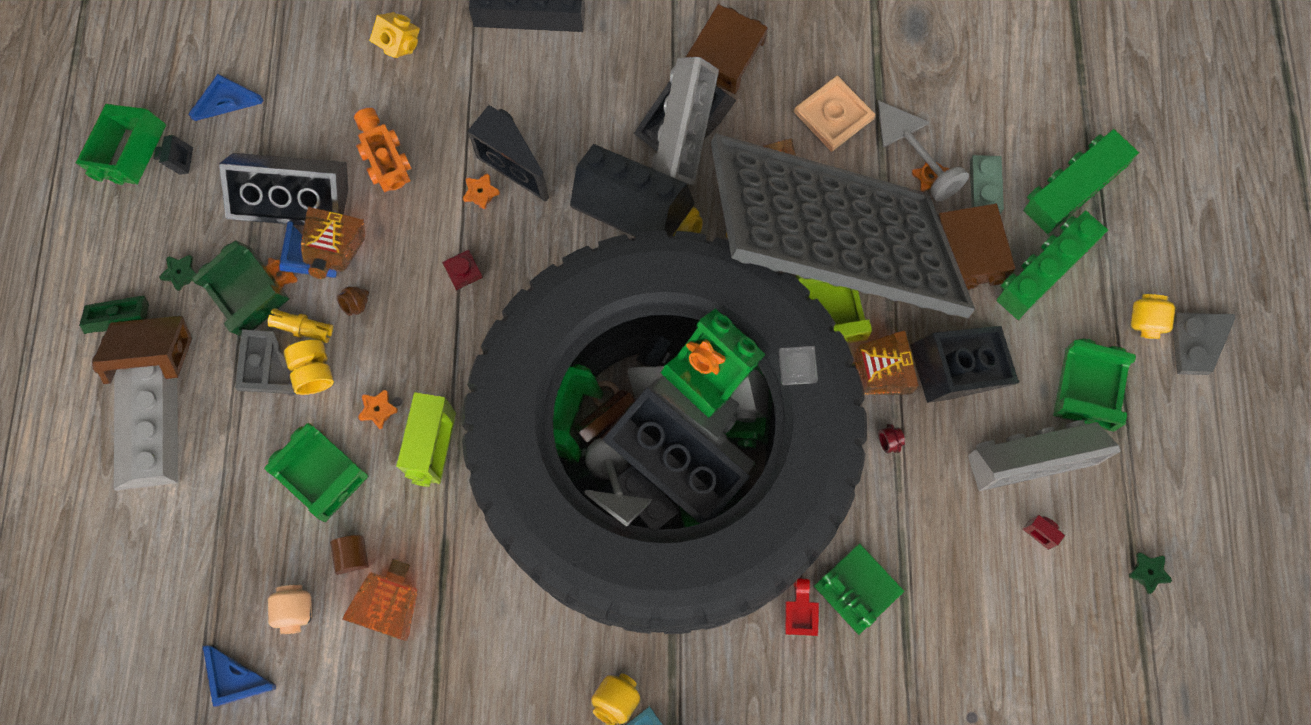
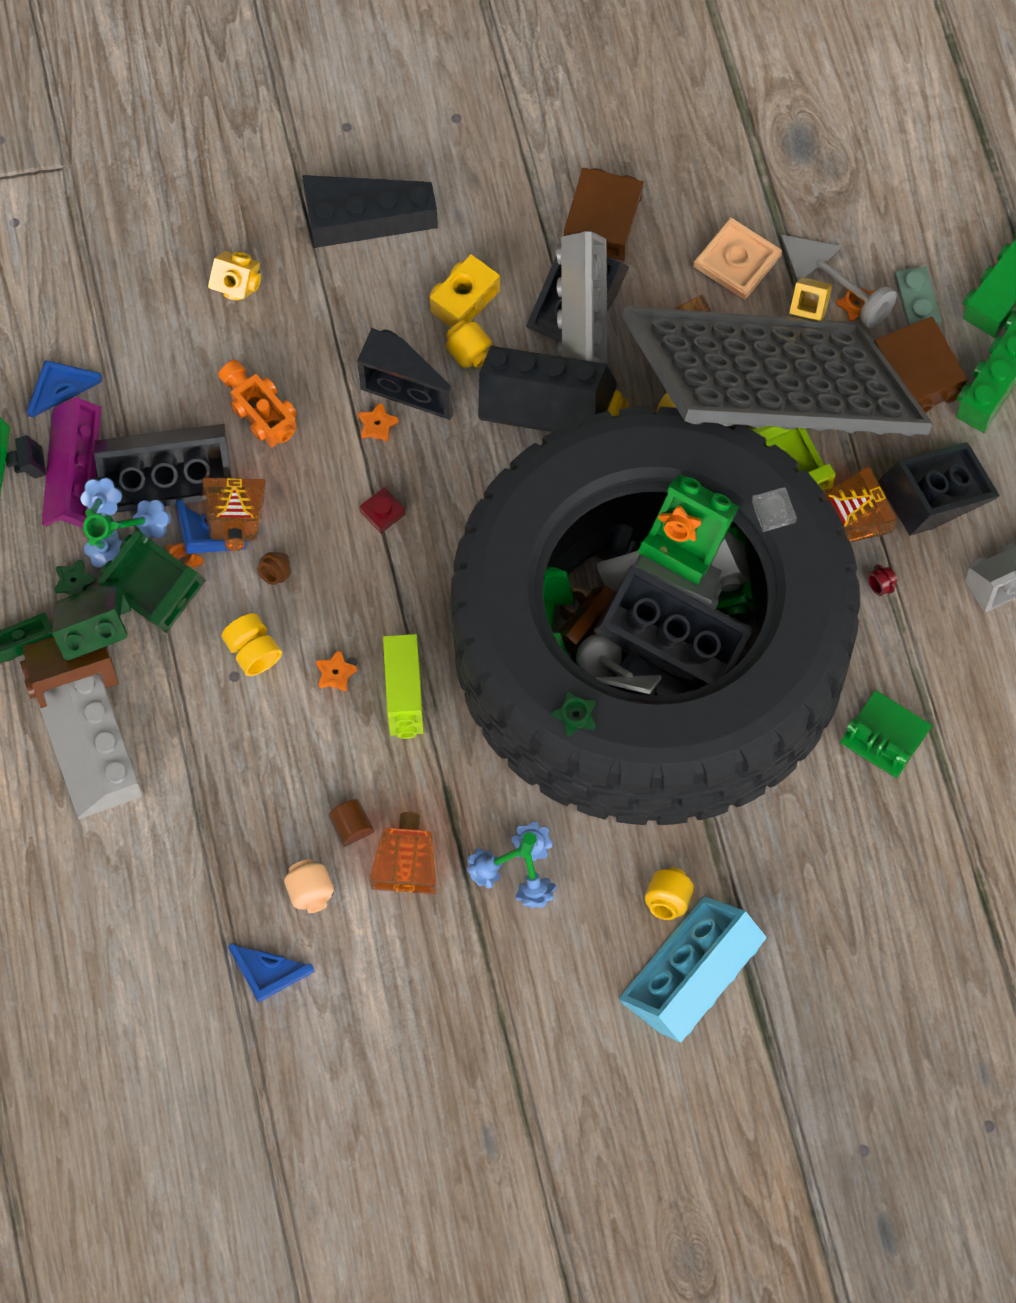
camera: 15 degrees left, 5 degrees down
(162, 313) = (90, 619): none -> dark green panel
(203, 185) = (70, 460): none -> magenta panel
(222, 205) = (99, 527): none -> medium blue plant
(262, 364) = (199, 655): dark grey wing -> none
(300, 325) = (224, 605): yellow pin -> none
(316, 472) = (291, 749): green panel -> none
(503, 617) = (530, 844): none -> medium blue plant
(538, 526) = (575, 704): none -> dark green plate
(576, 137) = (468, 344): none -> yellow head
(582, 106) = (471, 276): none -> yellow brick
(801, 615) = (834, 770): red plate -> none
(890, 163) = (810, 298): none -> yellow brick

